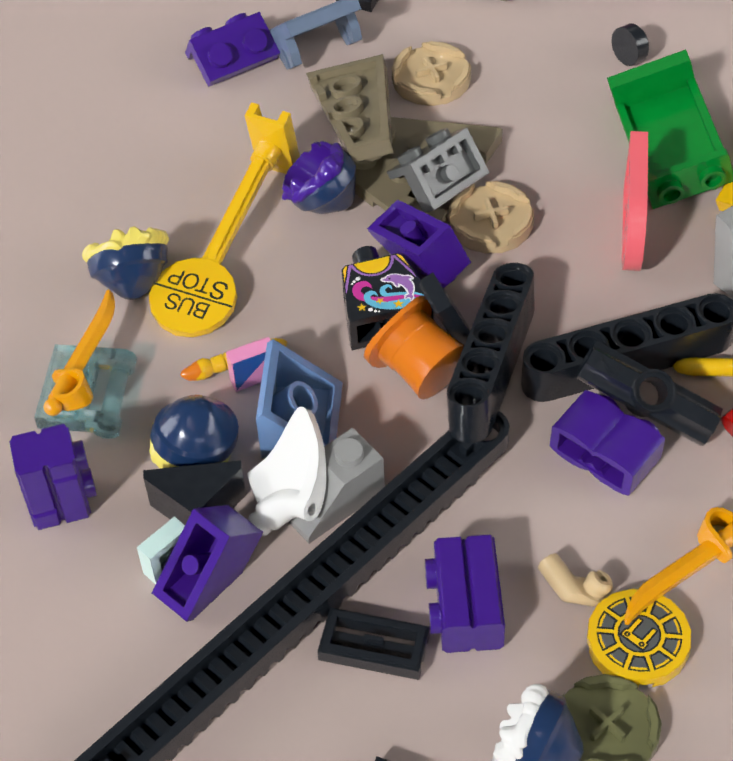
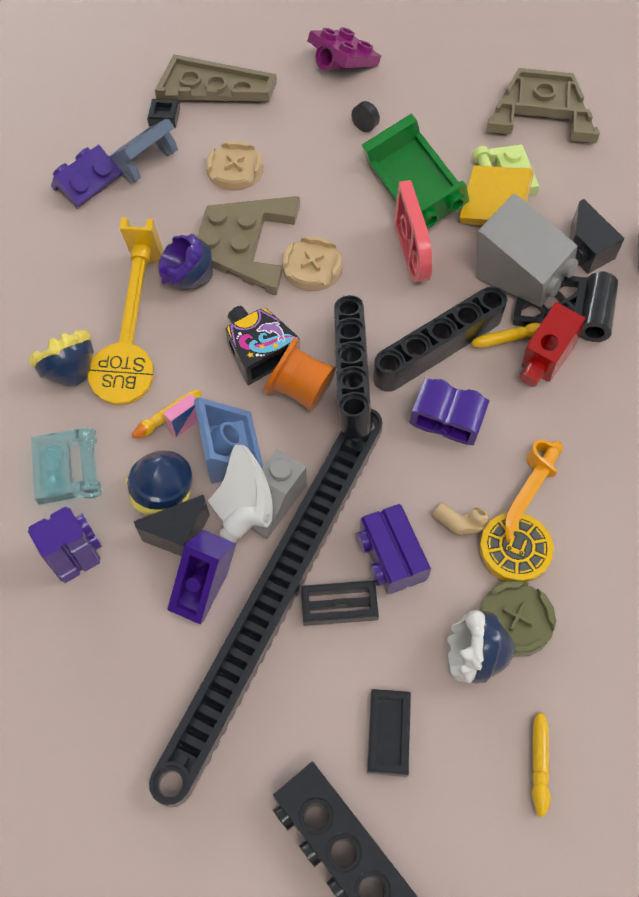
camera: 20 degrees left, 10 degrees up
(71, 385) = (53, 461): light orange sword -> none
(158, 547) = (165, 576): light aqua tile -> none
(357, 105) = (193, 201): dark tan wing -> none
(423, 241) = (277, 293): dark purple slope -> none
(441, 168) = (268, 235): bracket -> none
(444, 308) = (312, 343): black tile -> none
(676, 406) = (450, 366): black piece -> none

